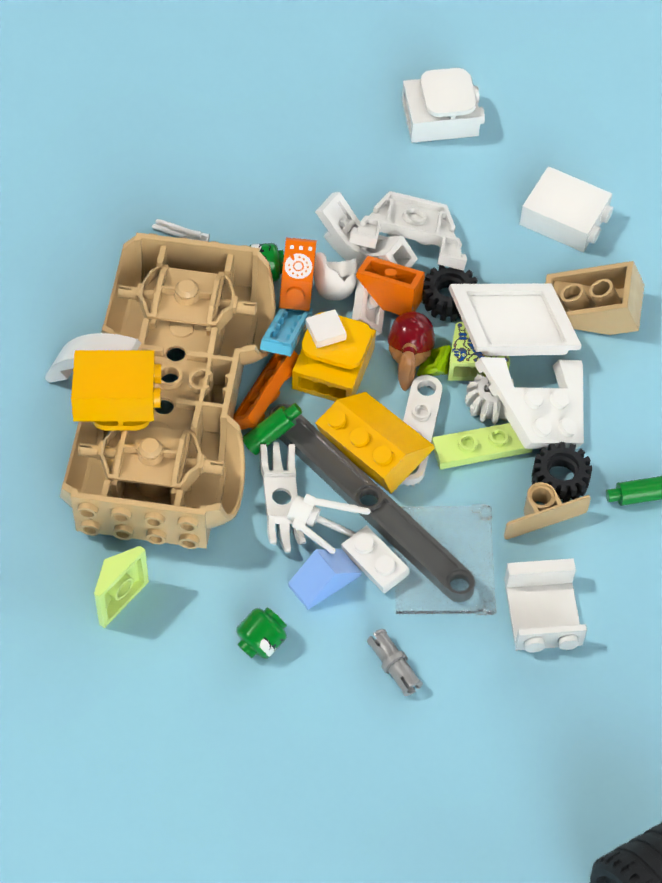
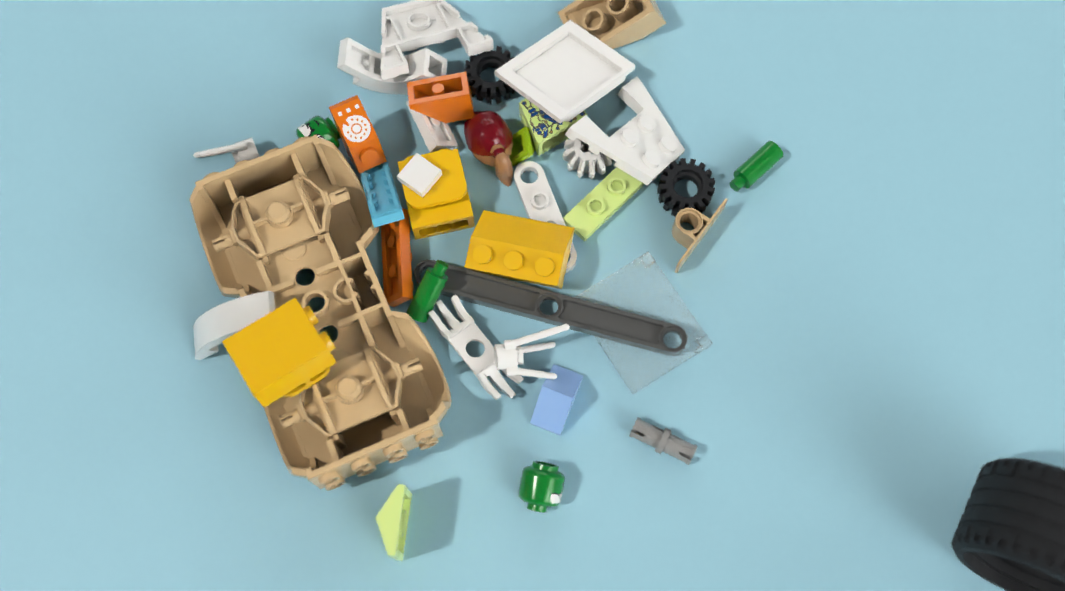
camera: 30 degrees left, 15 degrees up
(335, 279) = (389, 115): white hair -> none
(375, 559) = (587, 357): white plate -> none
(543, 605) = (747, 317): white panel -> none

